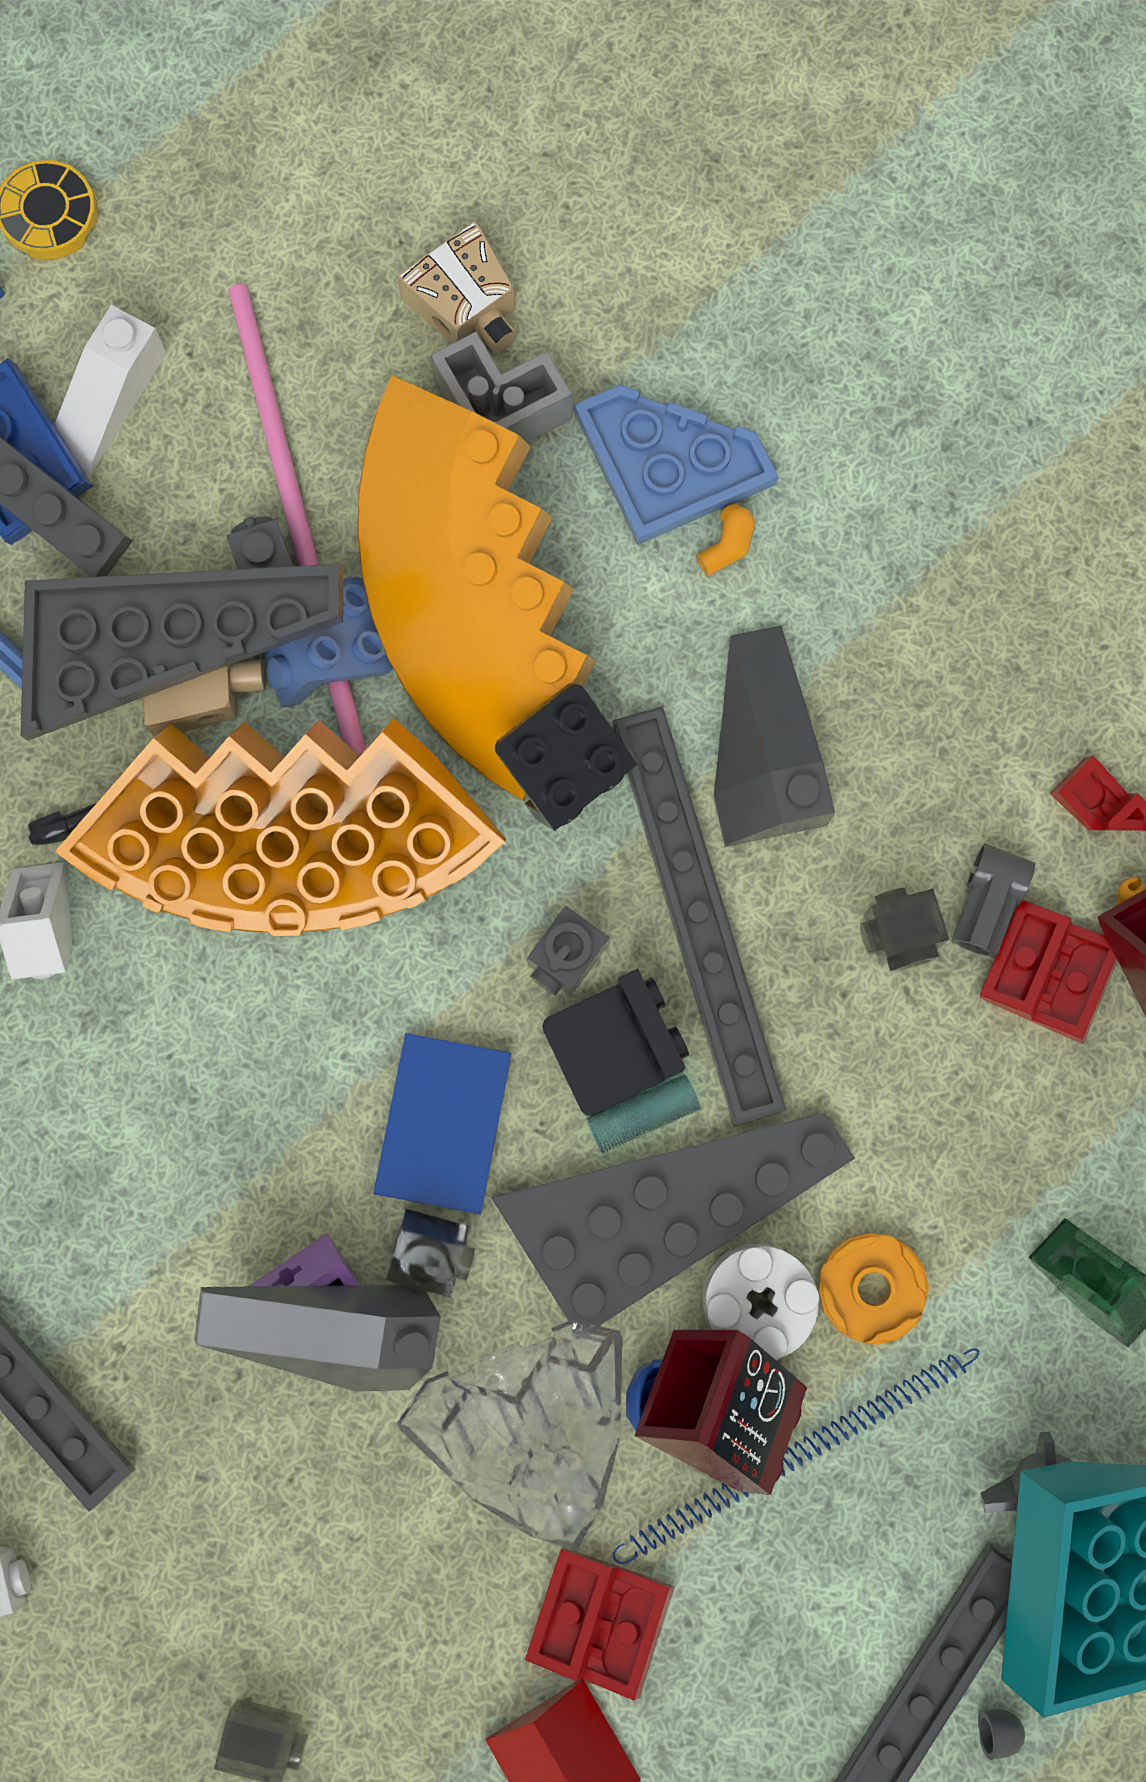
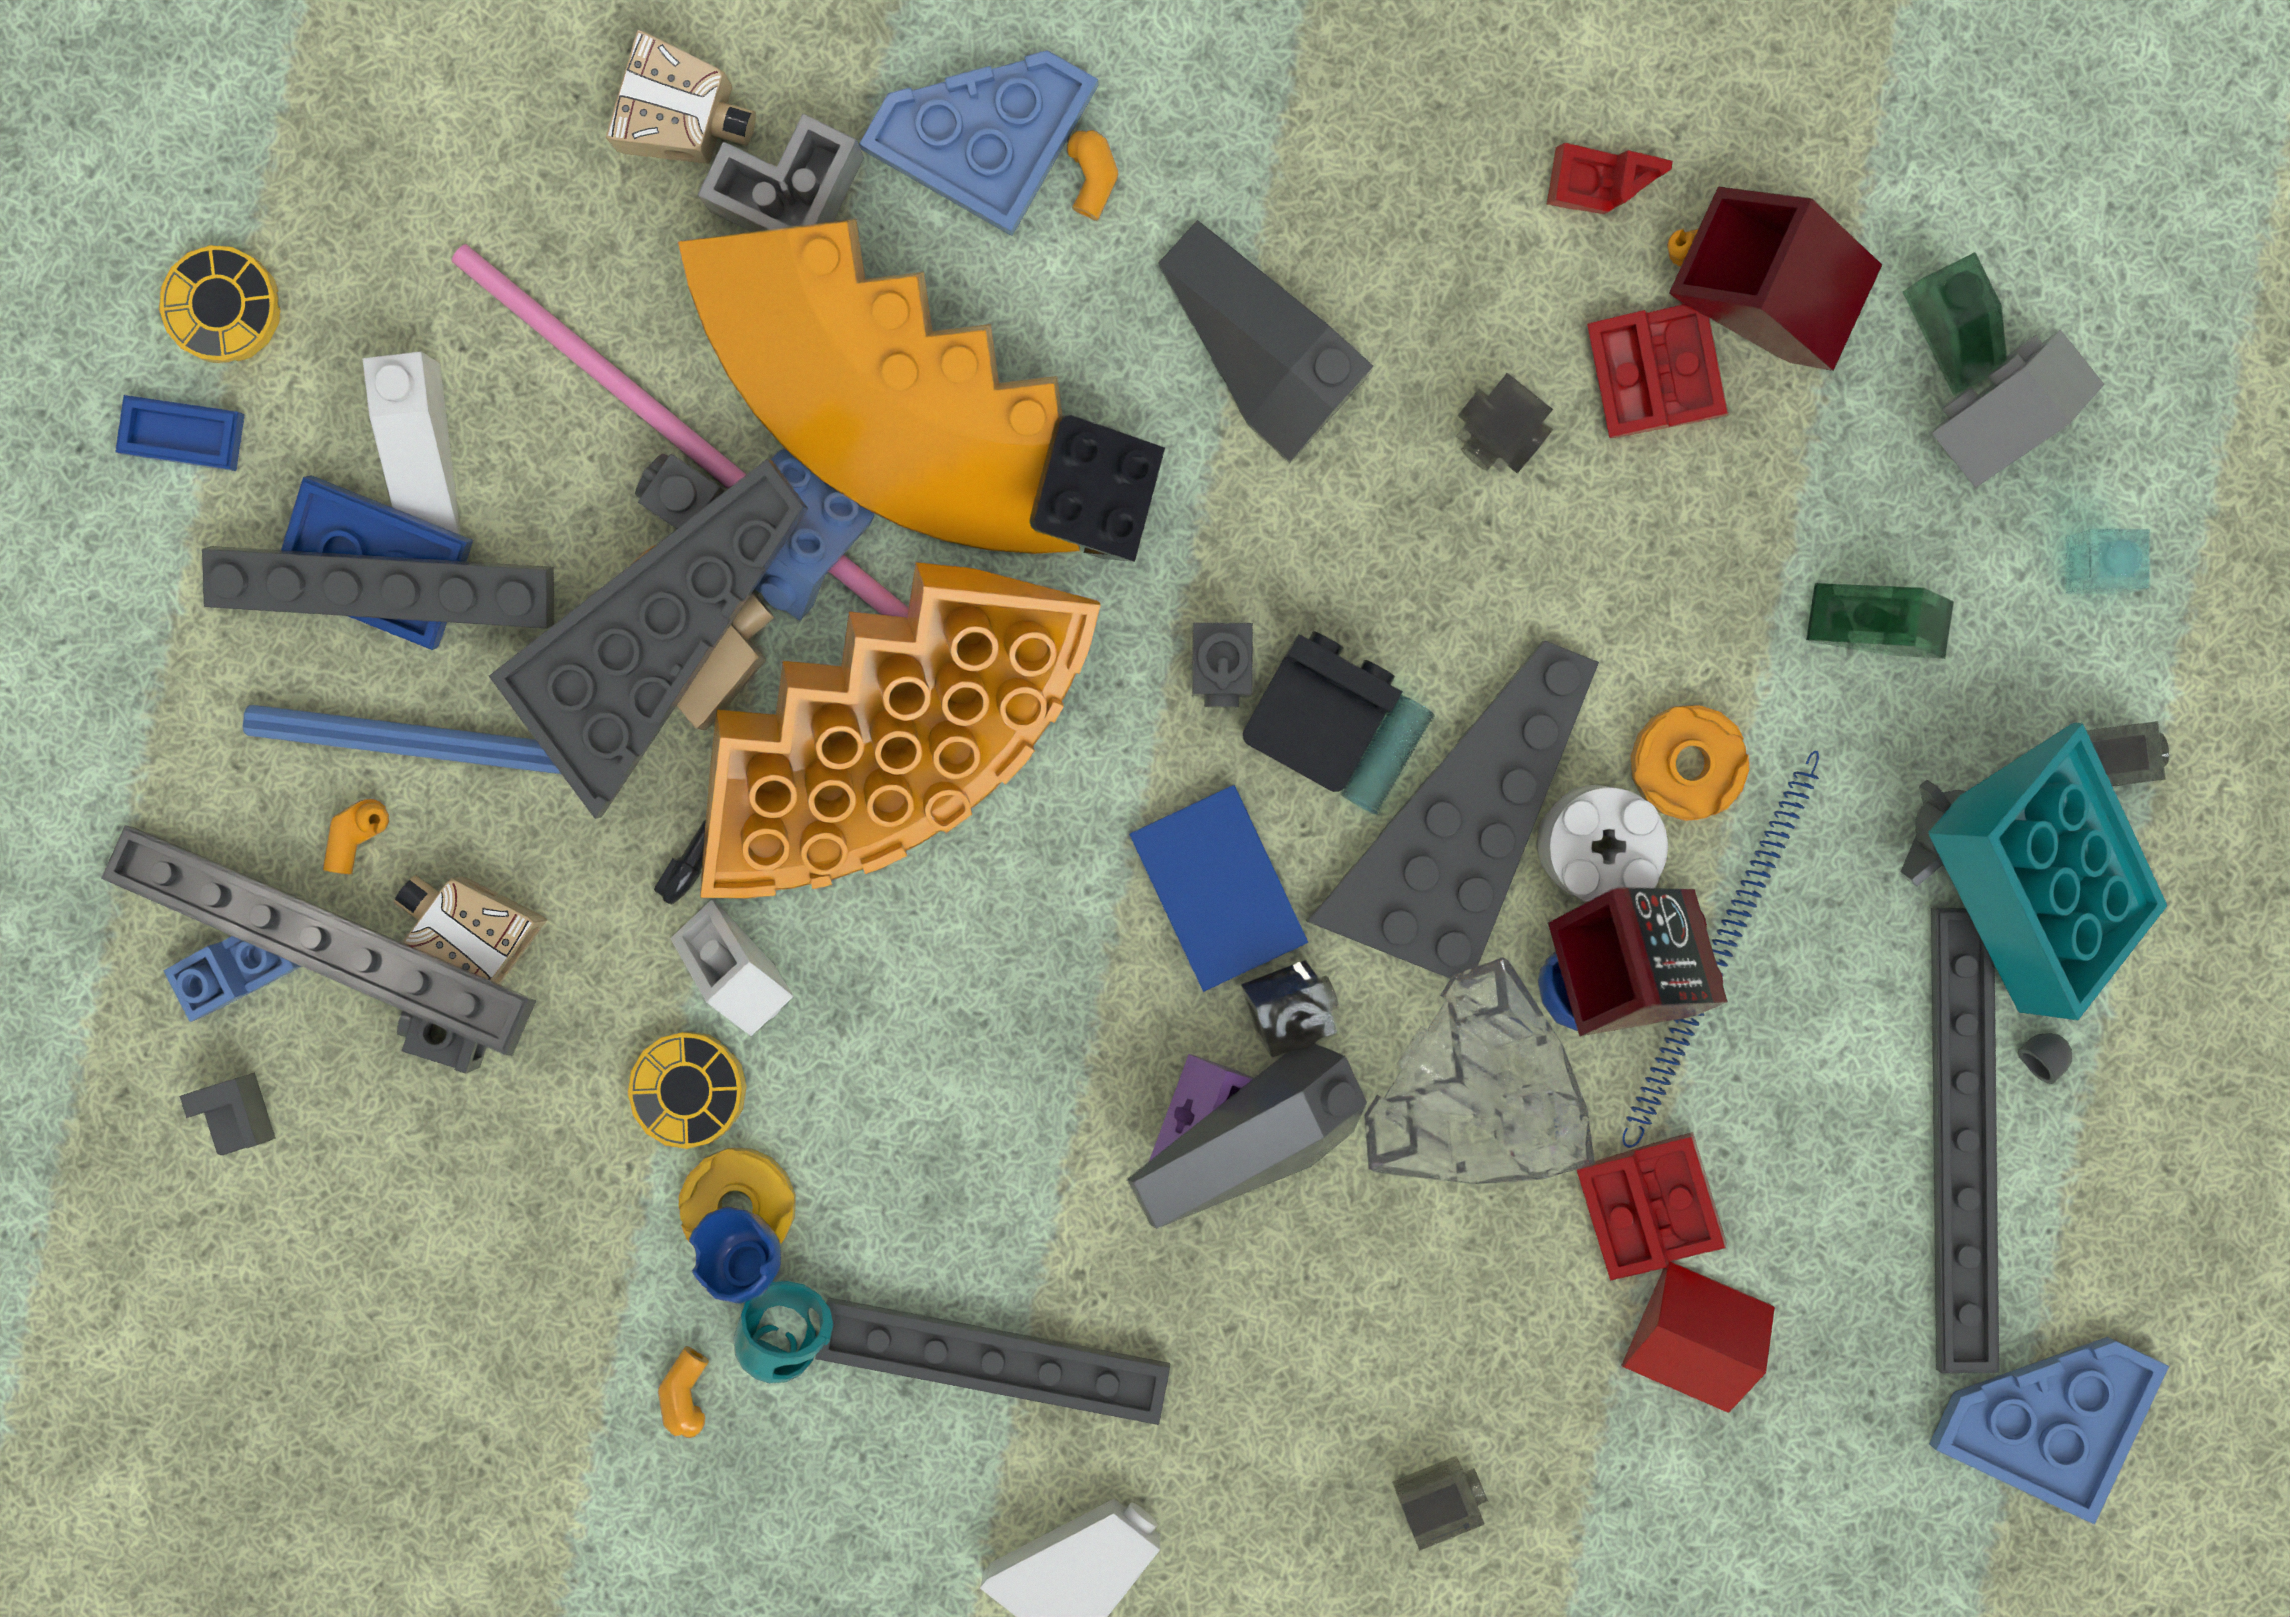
camera: 35 degrees left, 10 degrees up
(699, 919) = (1311, 543): dark grey tile -> none
(993, 894) = (1560, 332): dark grey piece -> none

